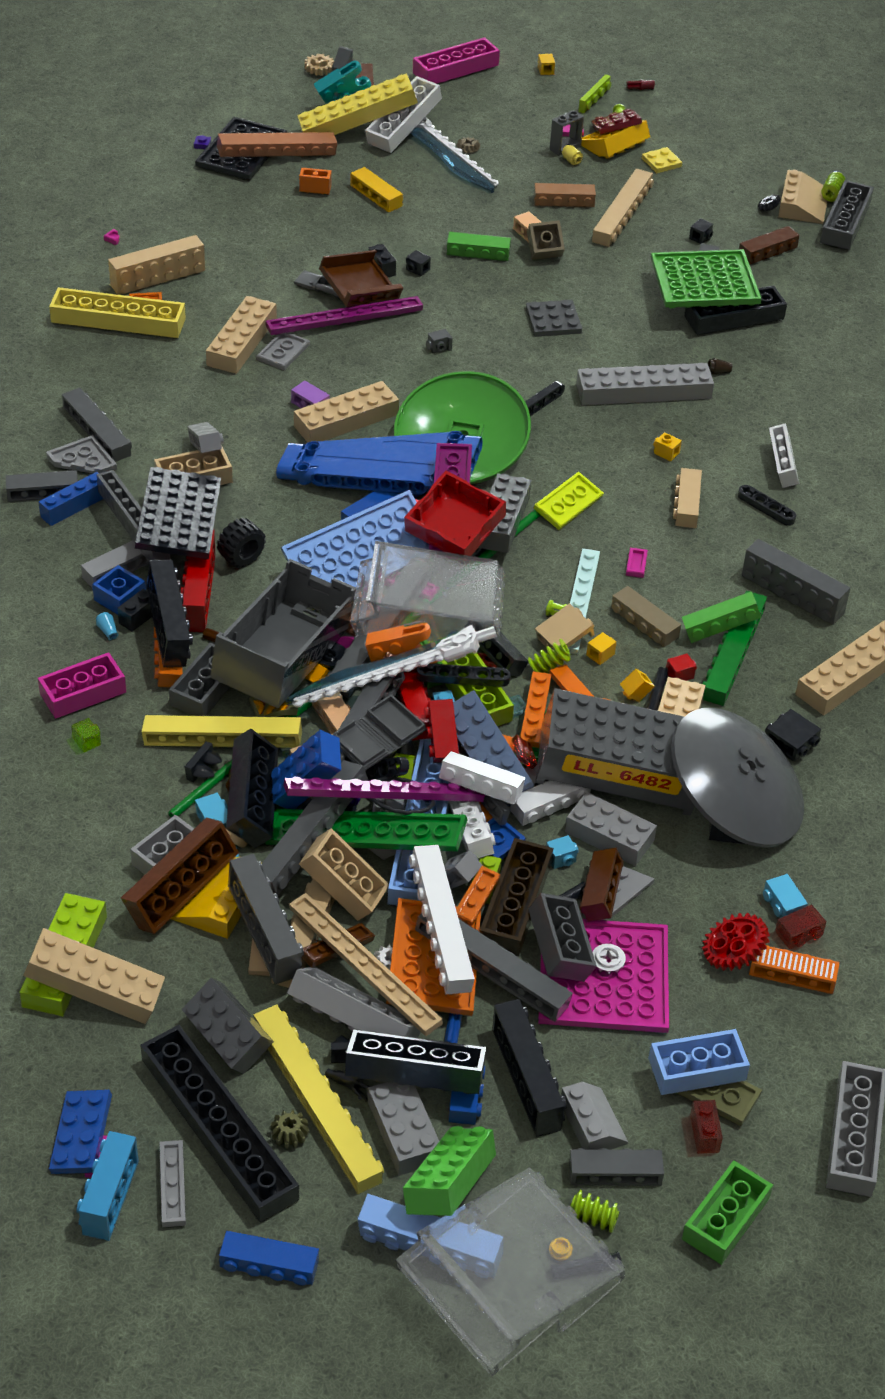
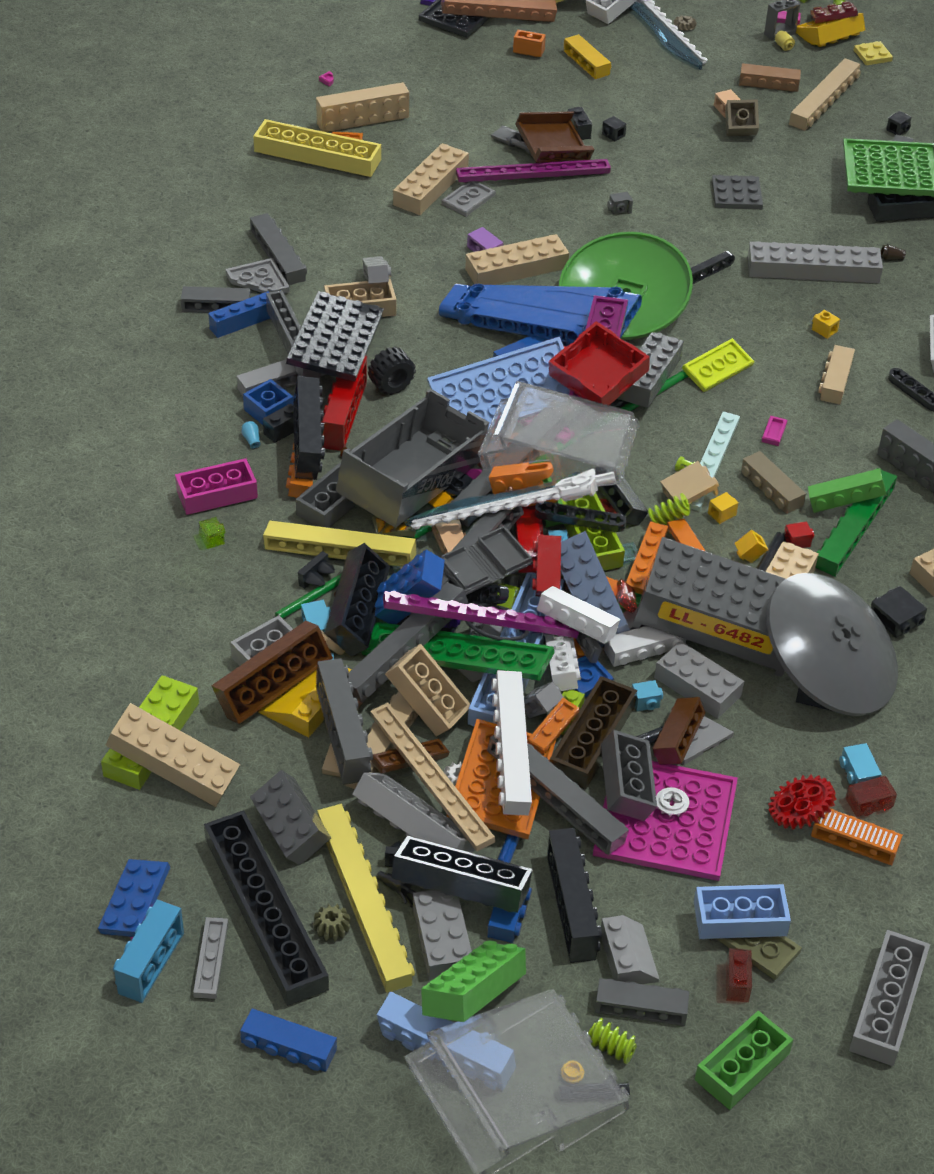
camera: 10 degrees right, 0 degrees up
(478, 246) = (676, 118): bright green brick -> none

